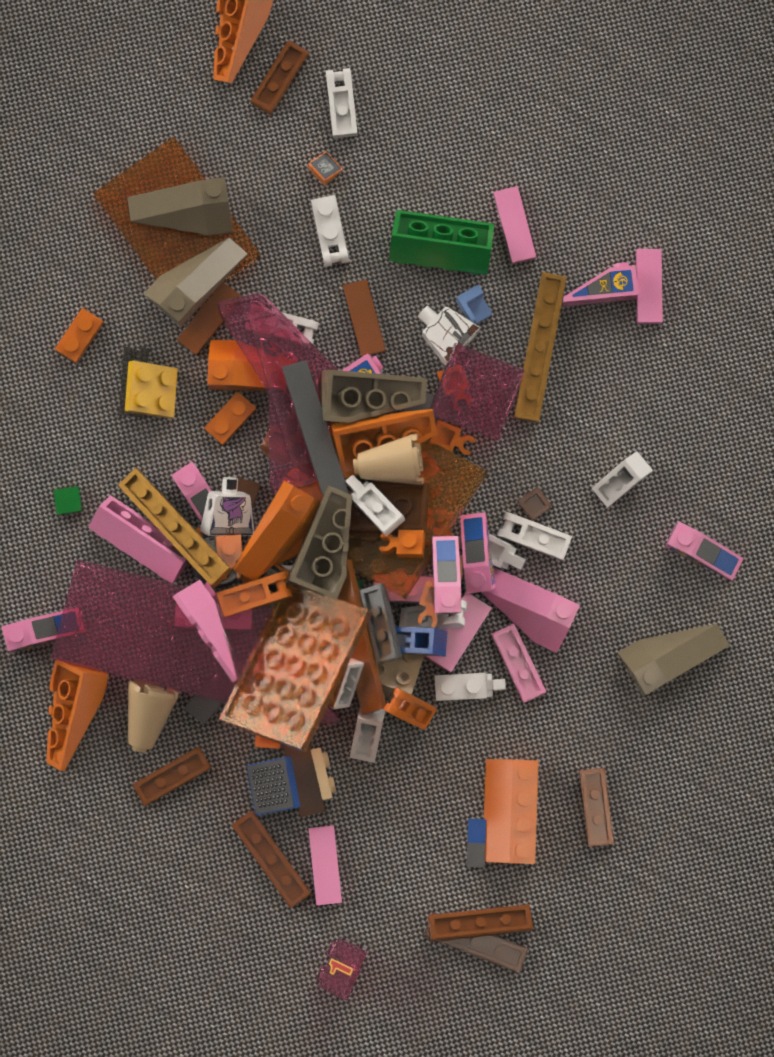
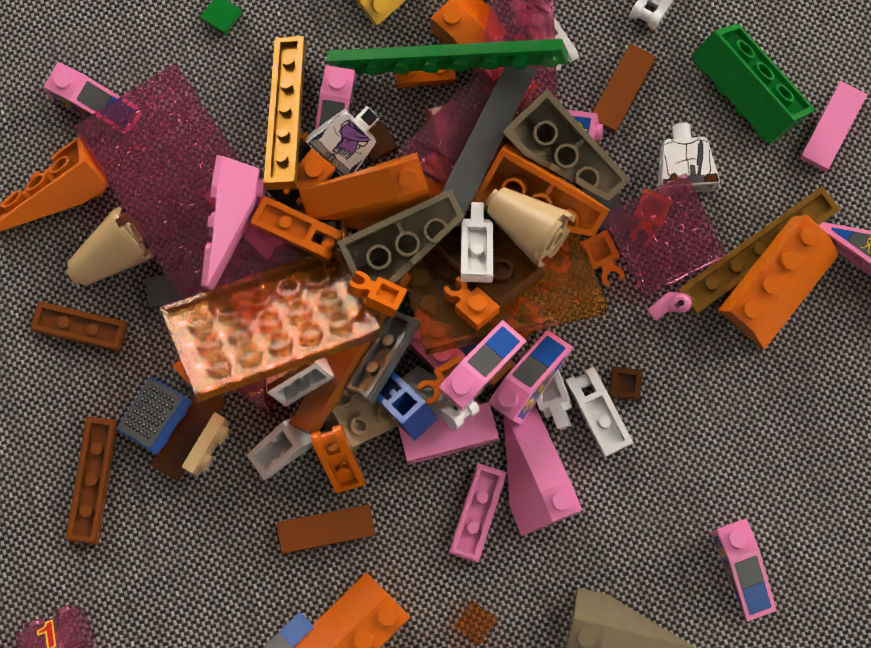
camera: 45 degrees right, 5 degrees down
(138, 538) = (245, 94): bright pink brick -> none
(249, 398) = (451, 56): none -> green plate
(325, 865) = (132, 531): bright pink tile -> none
(347, 587) = (380, 295): none -> orange plate
(438, 756) = (326, 529): none -> dark orange tile
(466, 686) = (410, 489): white hinge -> none
(473, 305) = (732, 160): medium blue panel -> none
(516, 429) = (670, 302): none -> bright pink arm
(569, 356) = (780, 280): none -> orange slope
(577, 728) = (475, 622): none -> clear orange tile
(622, 479) = (728, 433): white arch -> none

